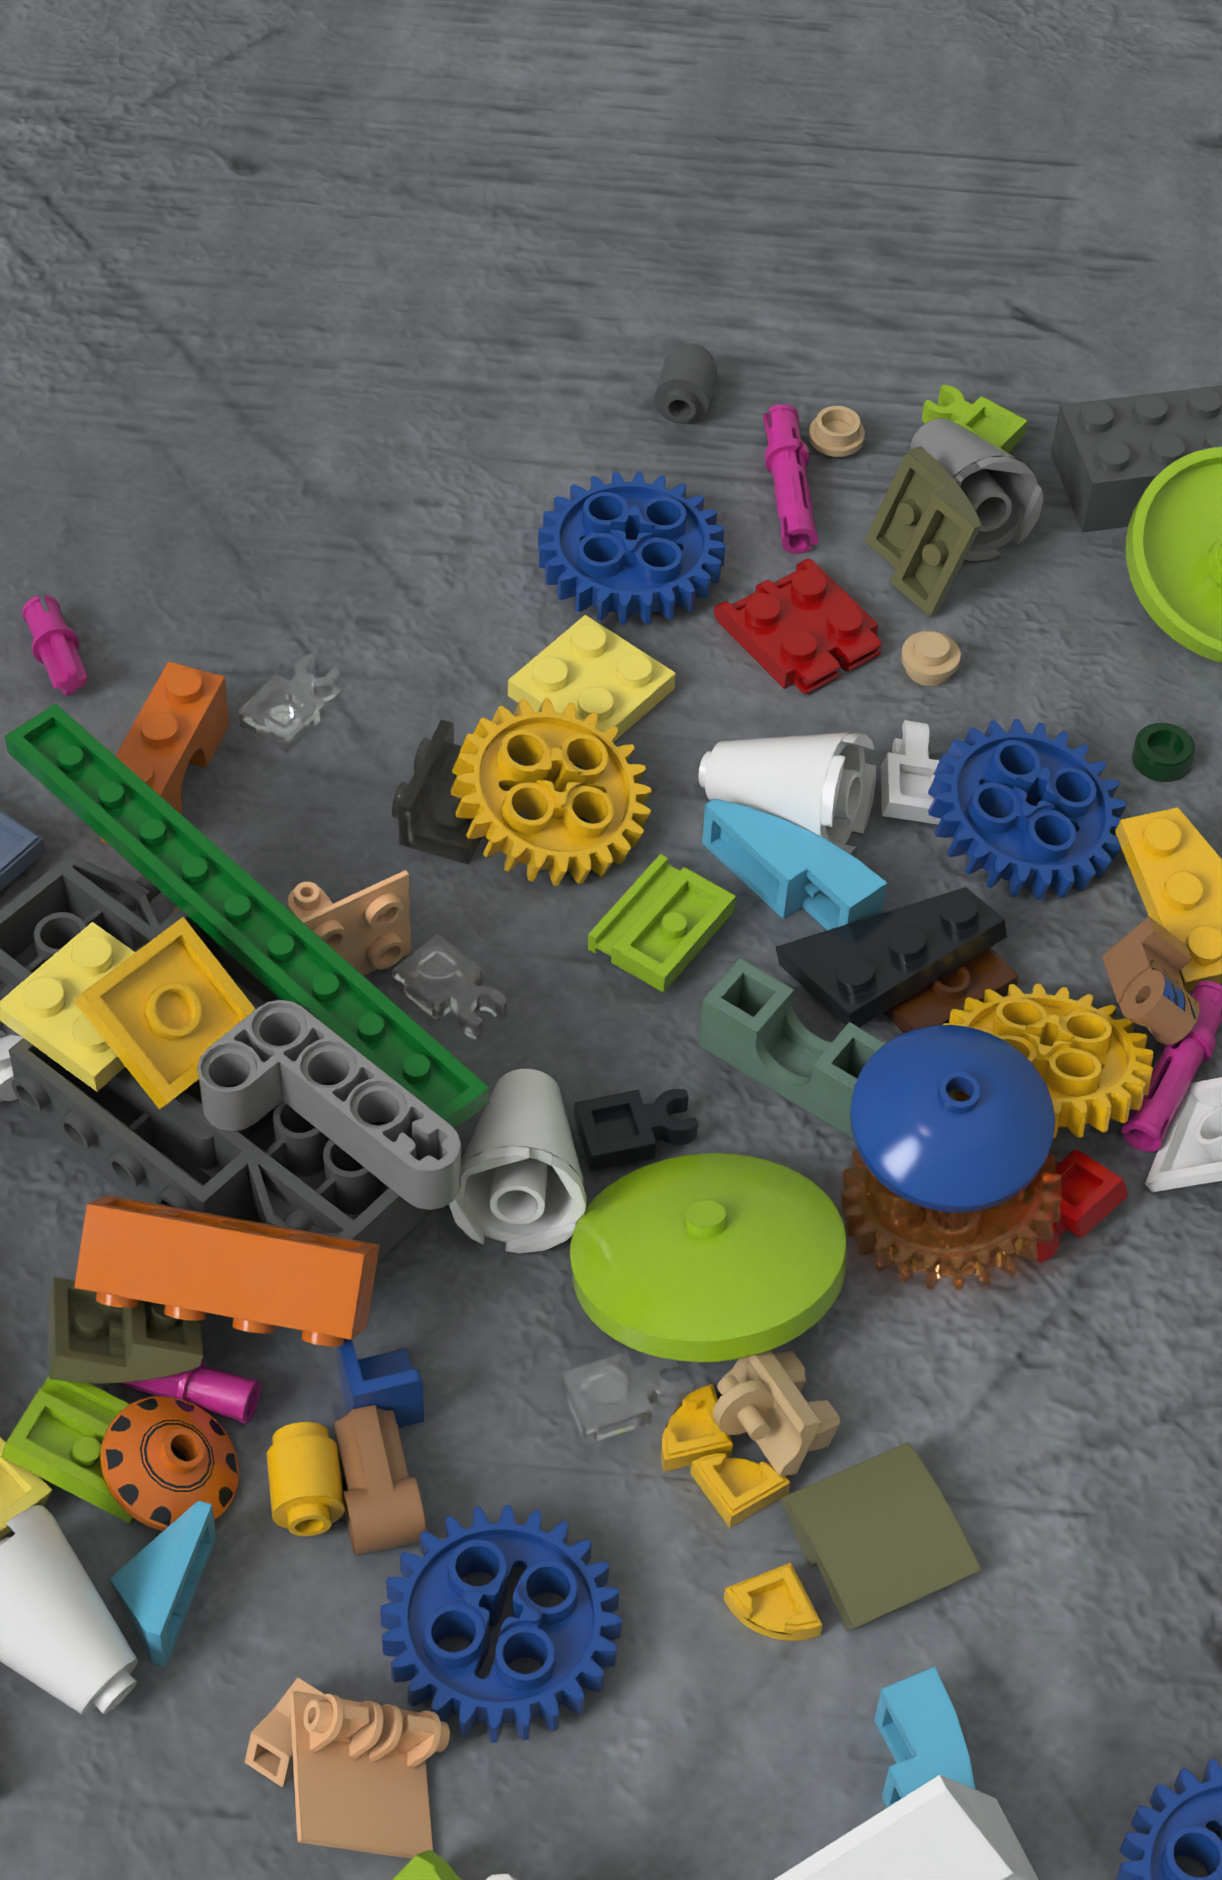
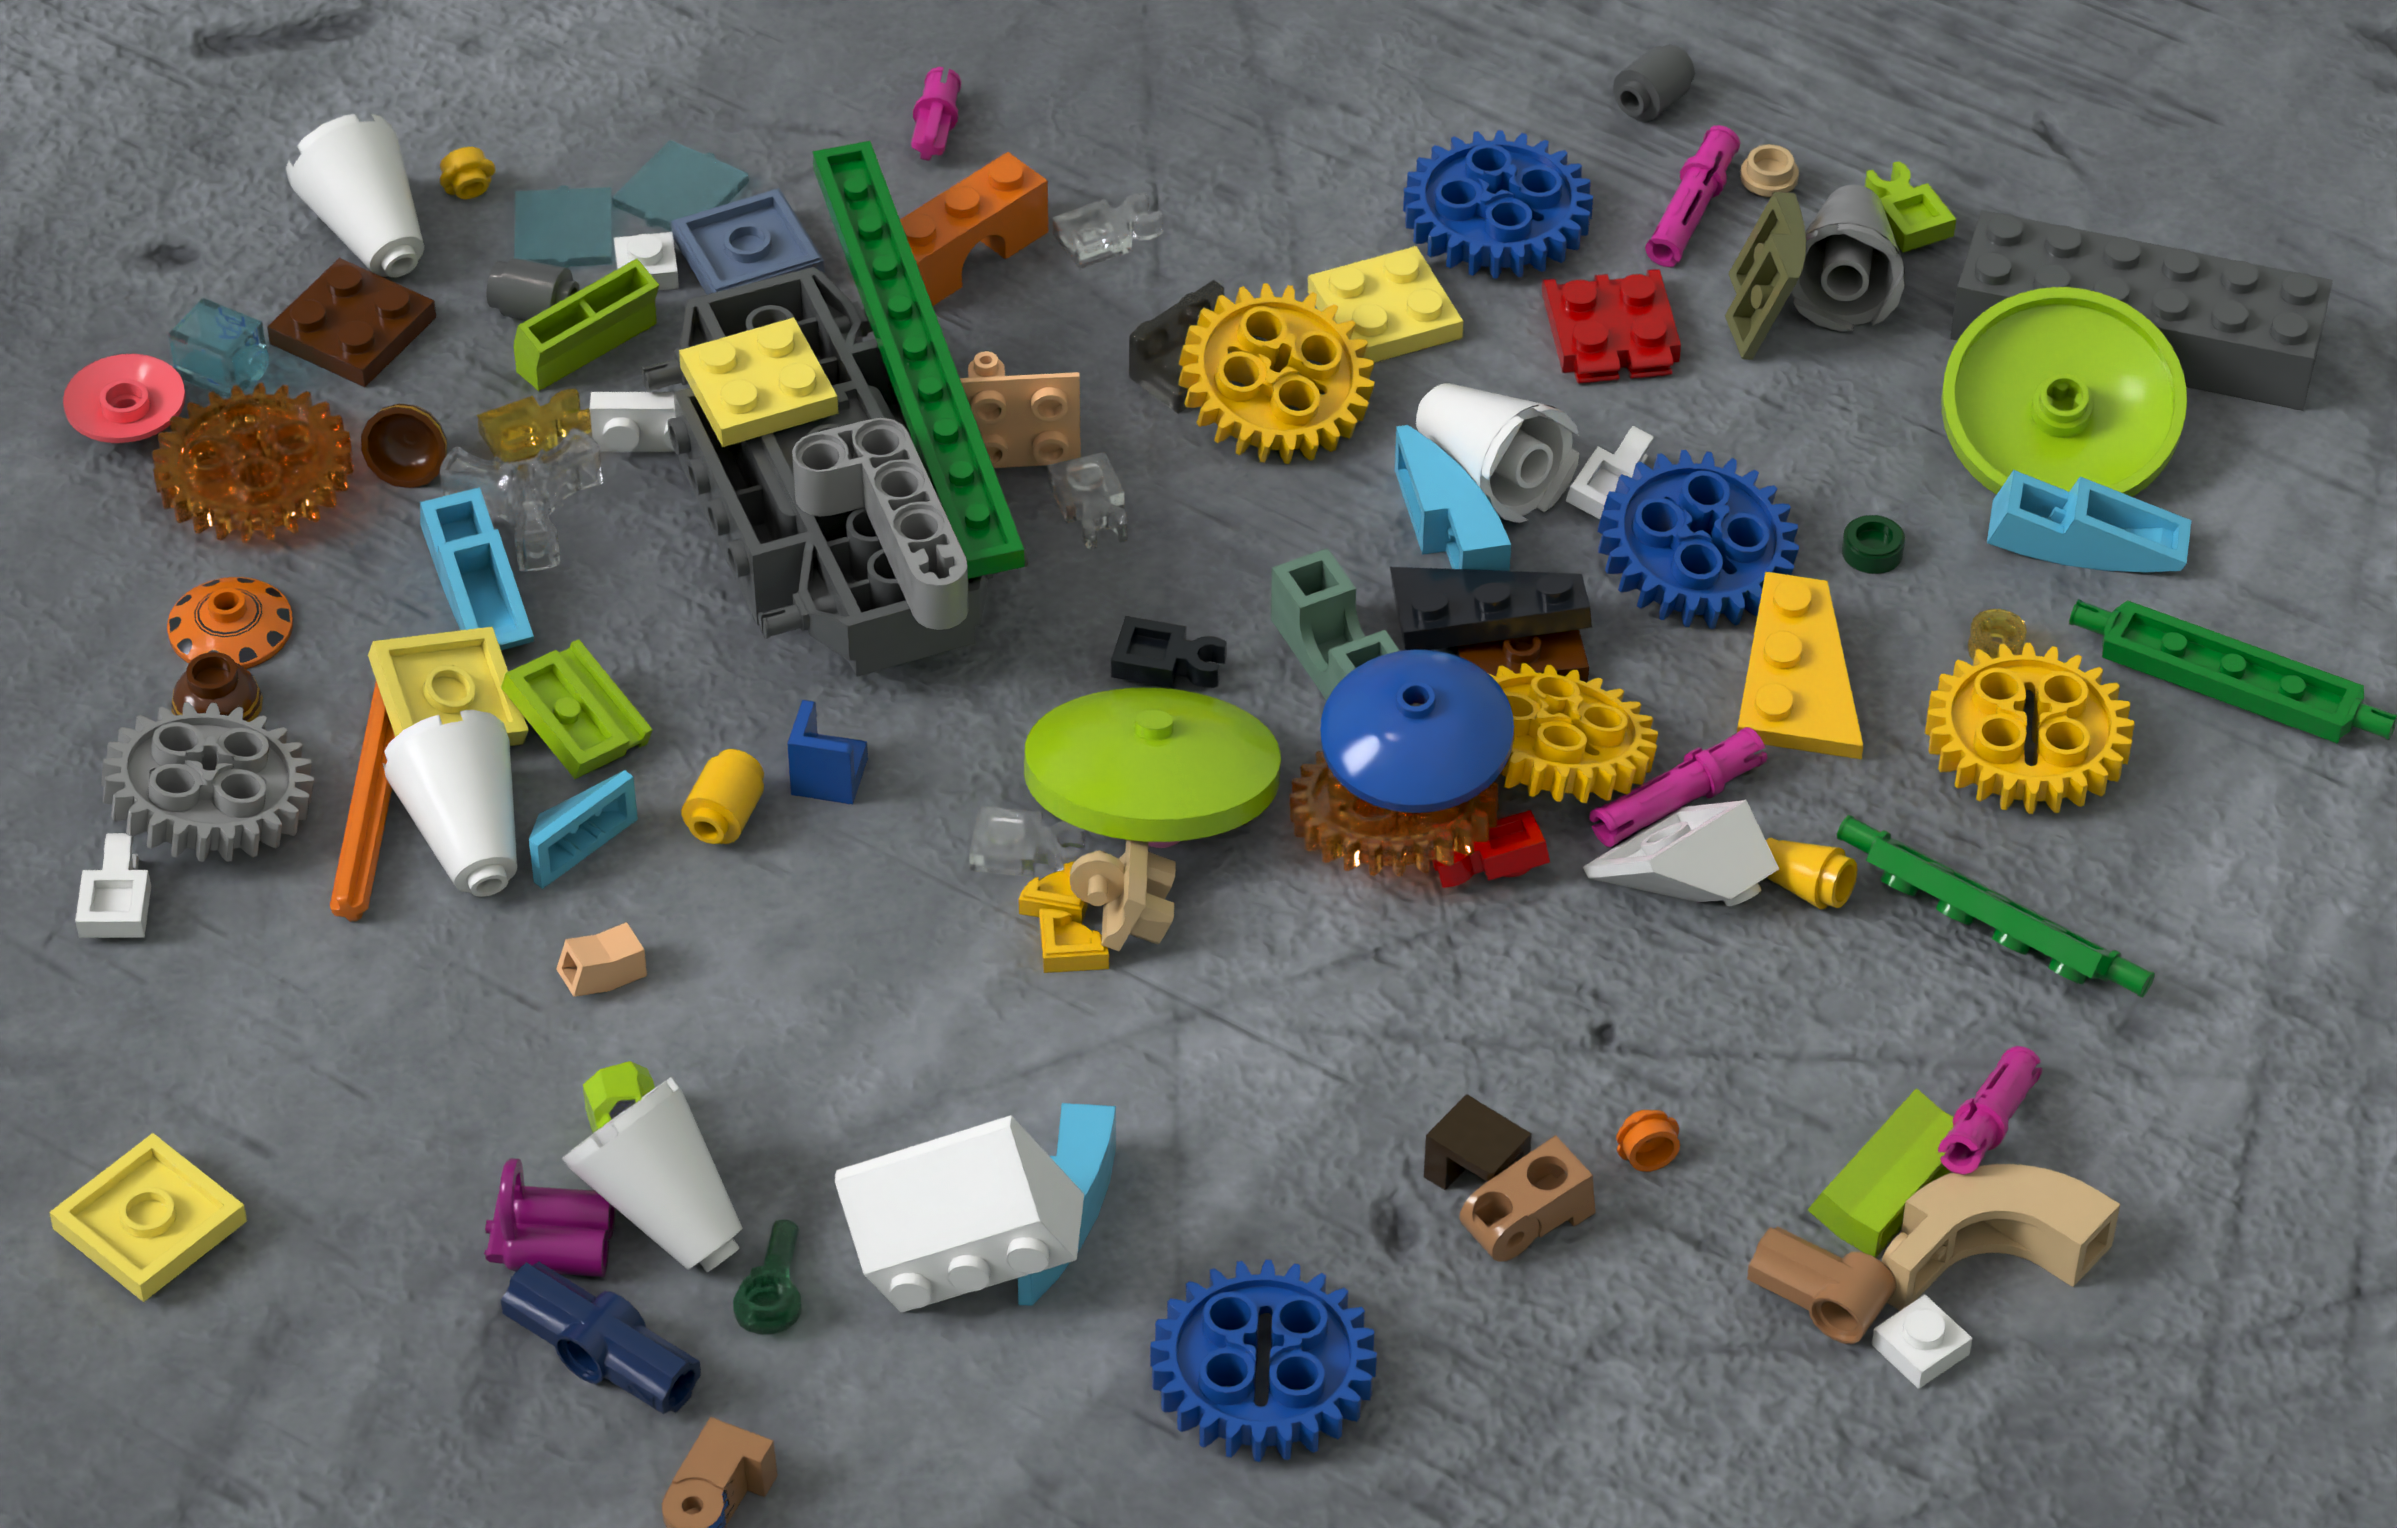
camera: 30 degrees right, 5 degrees down
(115, 1343) = (647, 640): olive slope -> none
(150, 1478) = (601, 747): orange dish -> none
(165, 1010) = (798, 391): yellow plate -> none
(209, 1390) = (683, 702): dark pink axle -> none
(226, 1269) = (742, 609): orange brick -> none
(363, 1774) = (631, 1000): light nougat hinge -> none
(380, 1497) = (775, 834): medium nougat piece -> none
(521, 1168) = (1040, 642): white cone -> none
(565, 1638) = (808, 952): blue gear -> none
(662, 923) = (1304, 512): lime plate -> none
(774, 1605) = (1037, 1034): yellow tile -> none
(880, 1535) = (1153, 1019): olive slope -> none
(930, 657) = (1711, 390): tan plate -> none
(1149, 984) = (1695, 705): medium nougat leg -> none

